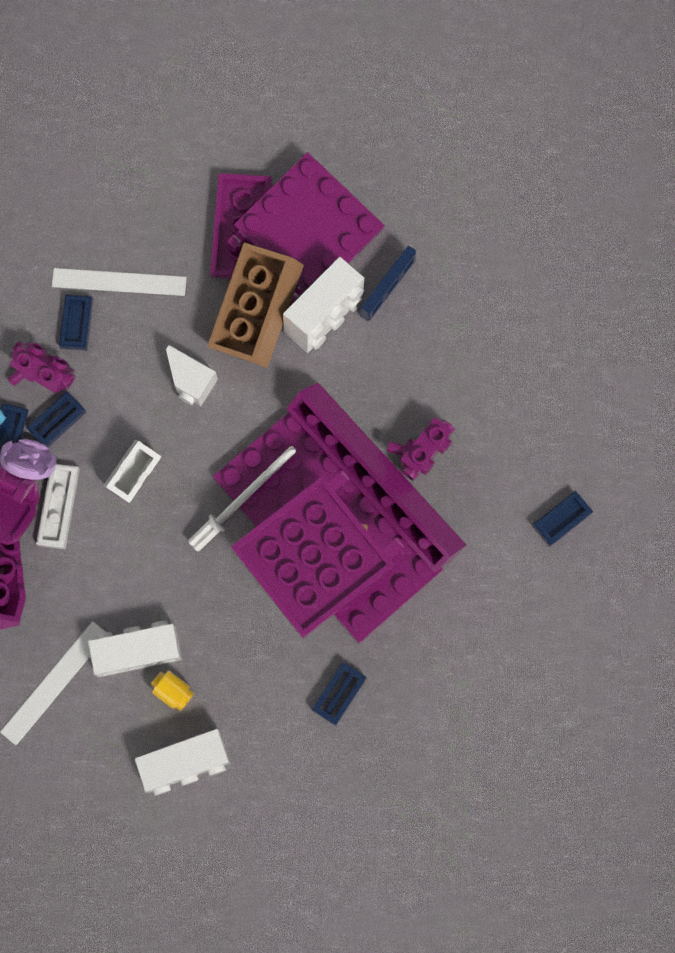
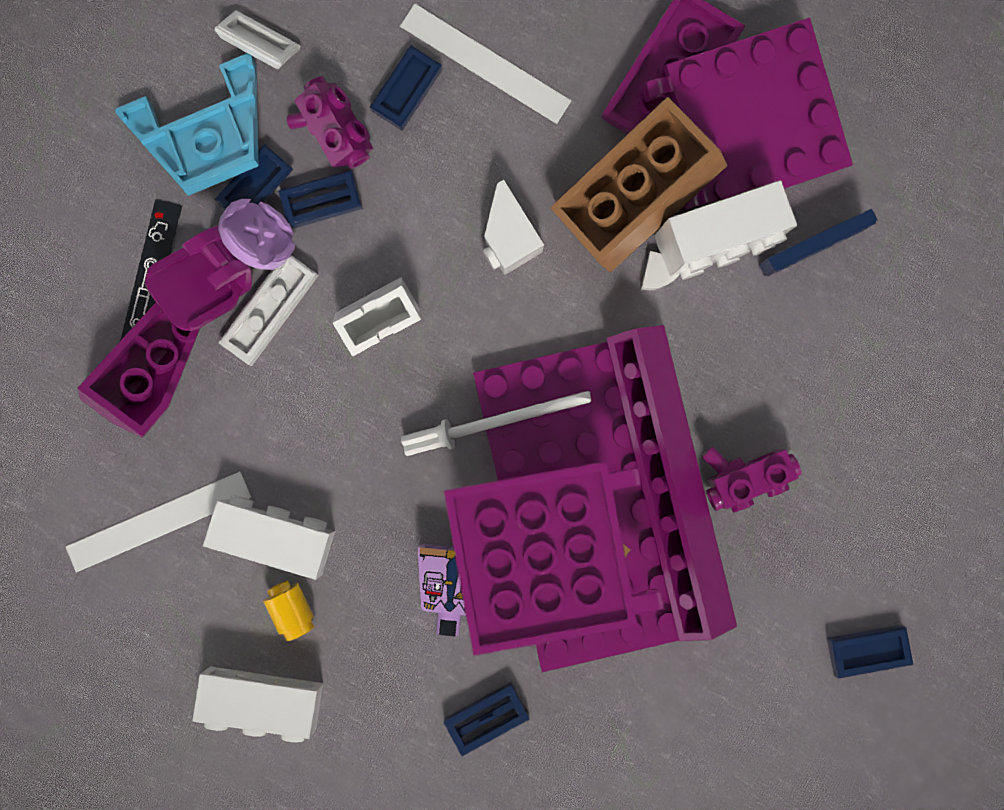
camera: 25 degrees right, 10 degrees up
(266, 620) = (441, 587): none -> torso
(298, 354) = (656, 273): none -> white tile

